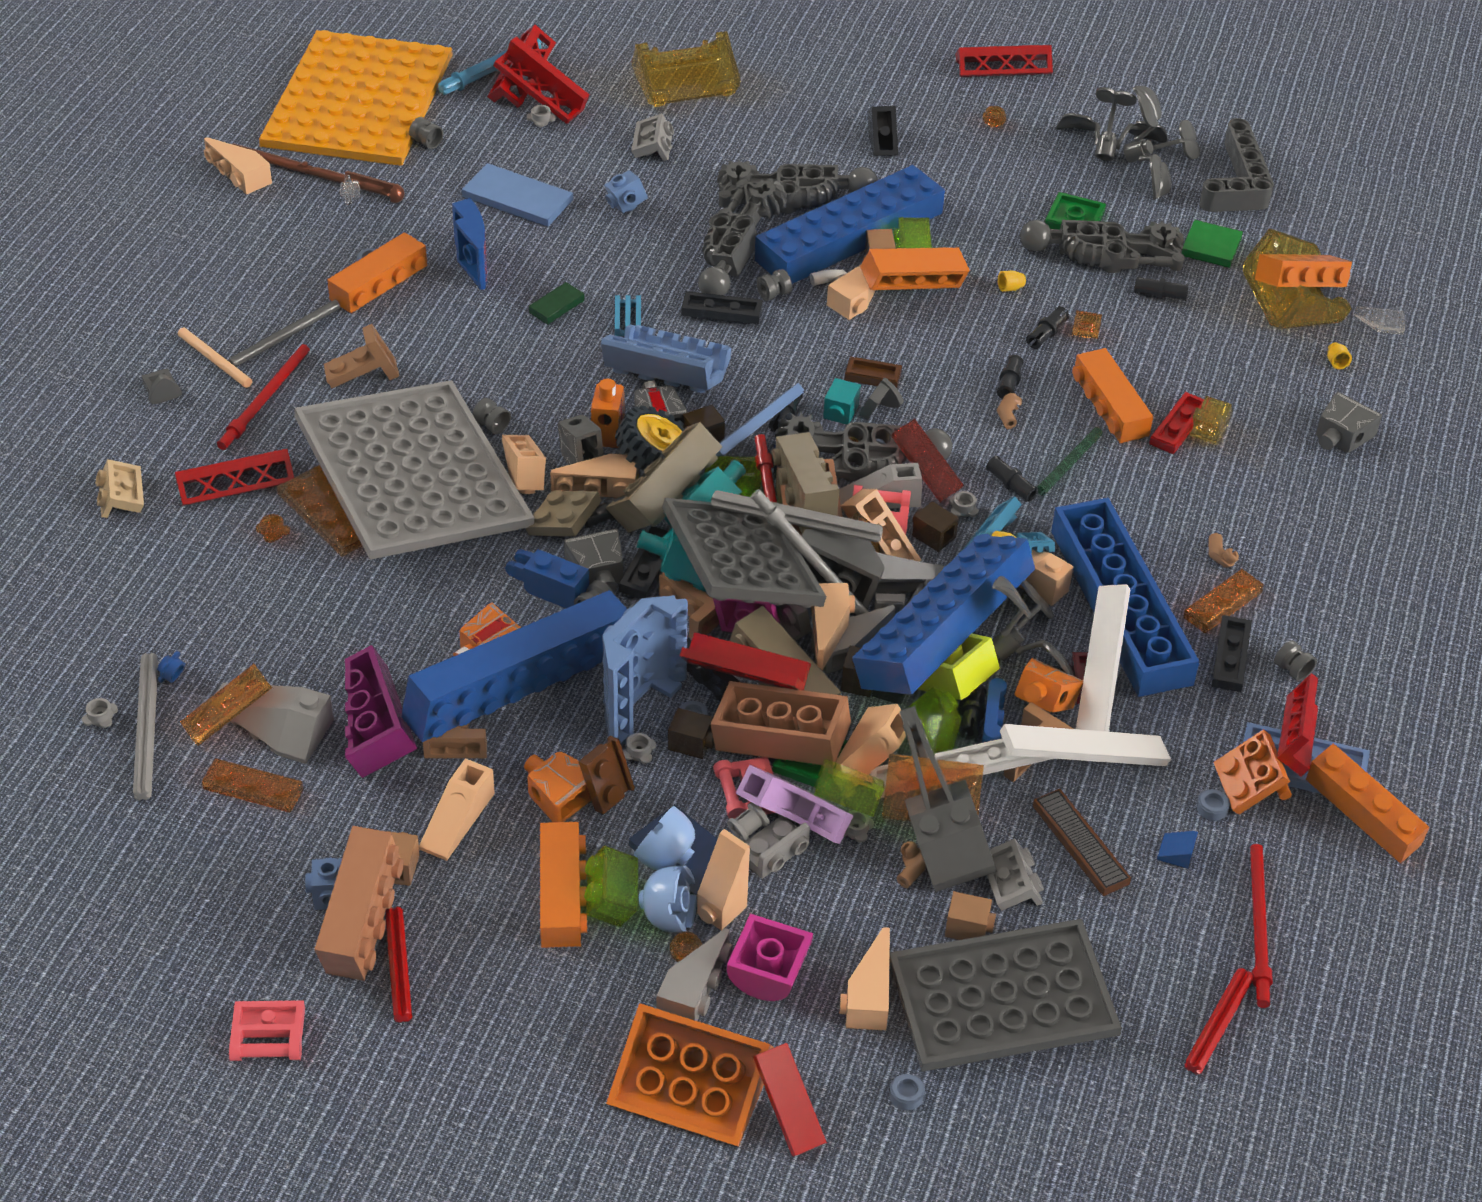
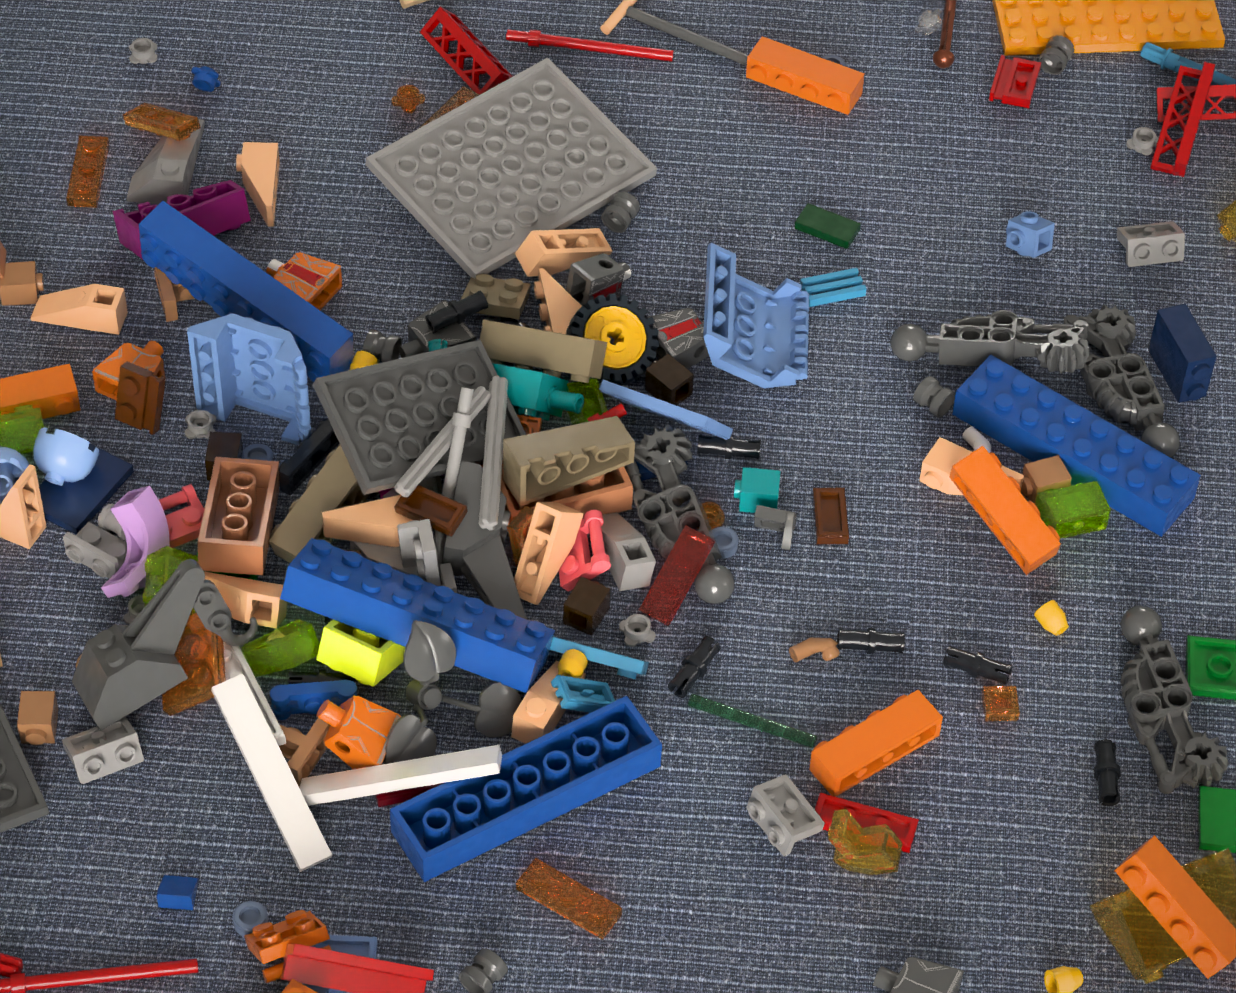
camera: 75 degrees right, 5 degrees up
(145, 727) = (132, 85): light grey axle -> none
(327, 646) = (260, 176): none -> light nougat slope
(362, 360) = (663, 96): medium nougat bracket -> none
(442, 162) = (1015, 81): none -> red plate
(470, 240) = (872, 129): blue slope -> none
(517, 194) = (995, 154): medium blue tile -> none
(549, 576) = (399, 304): blue hinge -> none
(591, 528) = (456, 311): none -> black pin
(608, 400) = (653, 289): orange torso -> none
(722, 307) = (877, 360): black plate -> none
(746, 662) = (298, 469): red fence -> none
(780, 542) = (437, 448): none -> light grey axle
(785, 142) = (1182, 353): none -> dark blue brick
(844, 572) = (424, 504): none -> reddish brown tile
(886, 589) = (419, 549): none -> light grey bracket
(1081, 842) = (167, 804): tile -> none
(1171, 459) = (783, 813): none -> light grey bracket
(1218, 554) = (645, 883): medium nougat arm -> none
(1231, 653) = (479, 910): black plate -> none

